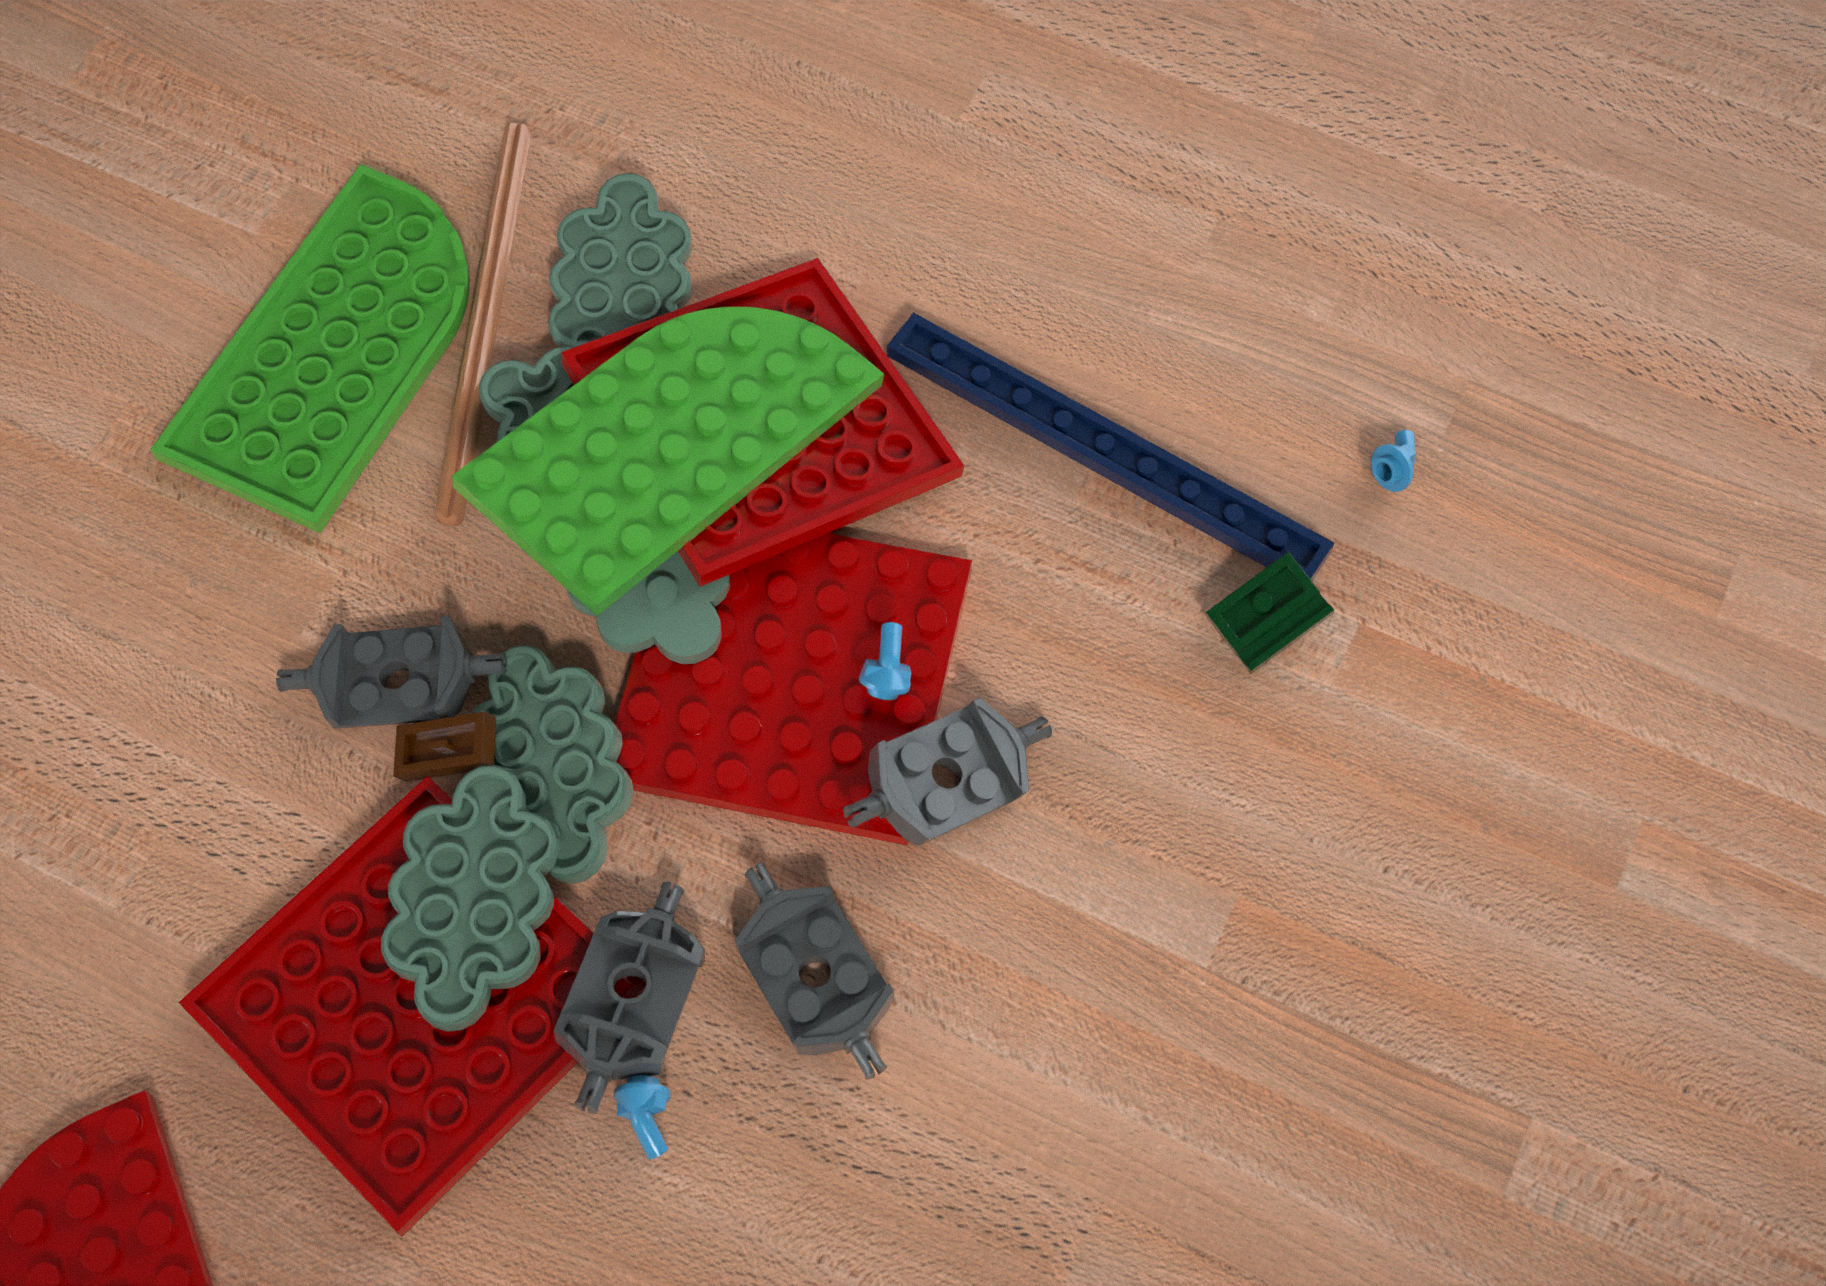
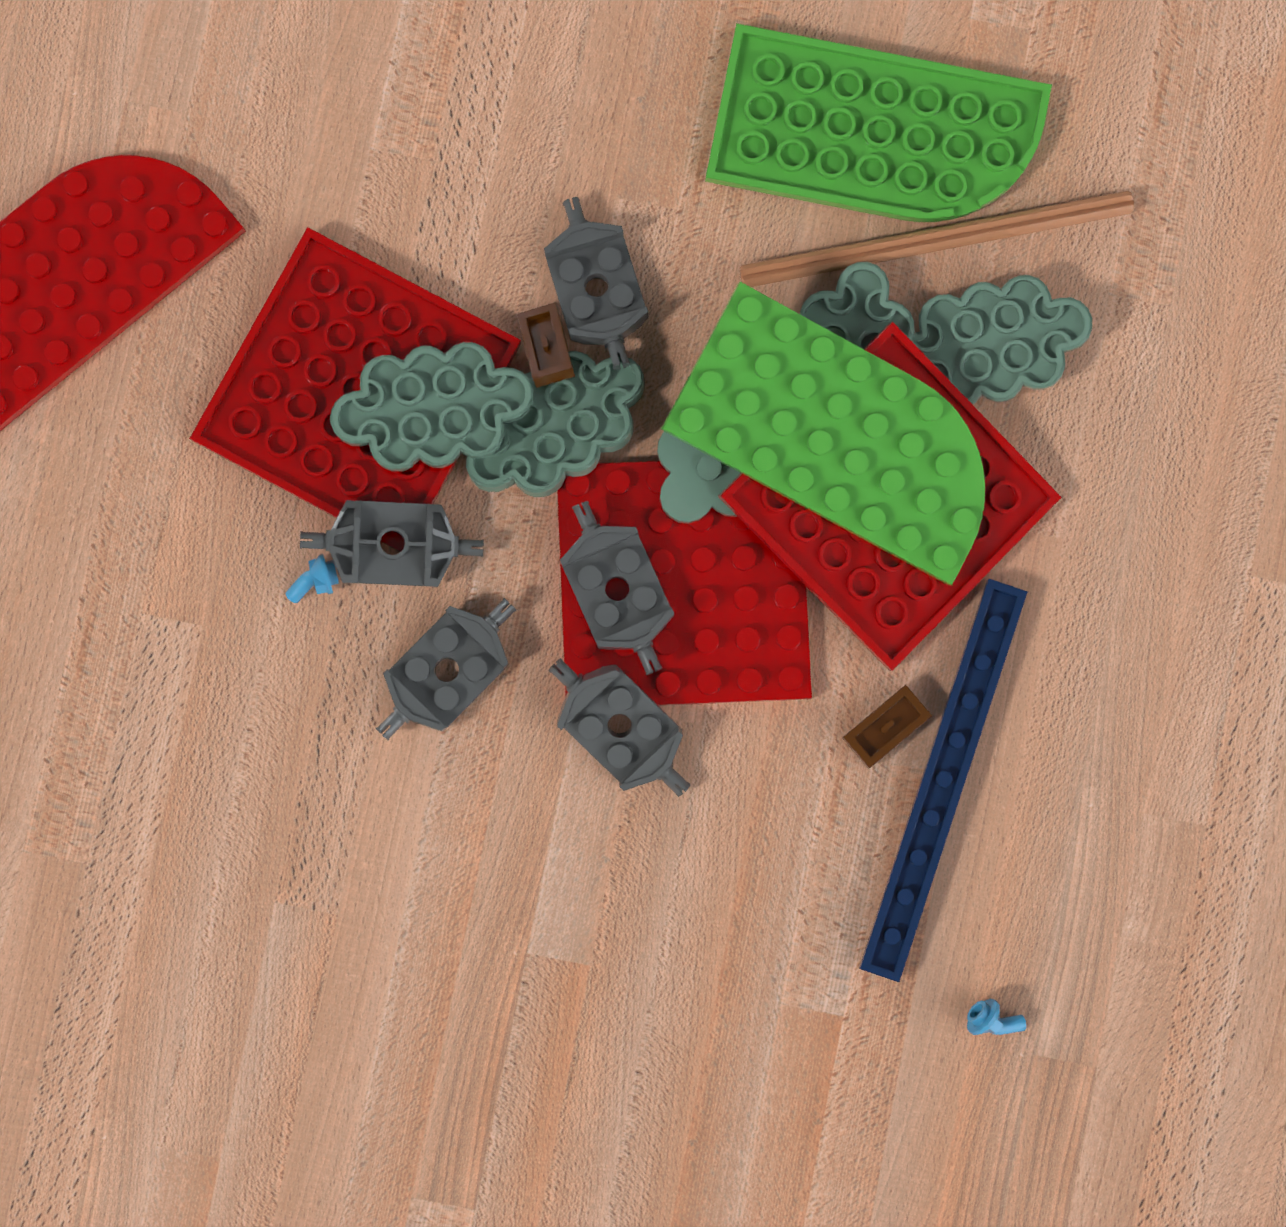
camera: 70 degrees right, 20 degrees up
(732, 722) = (610, 554): none -> dark grey plate
(887, 676) = (682, 661): dark azure plate -> none
(1027, 490) = (887, 726): none -> reddish brown plate
(1269, 612) = (823, 942): dark green plate -> none

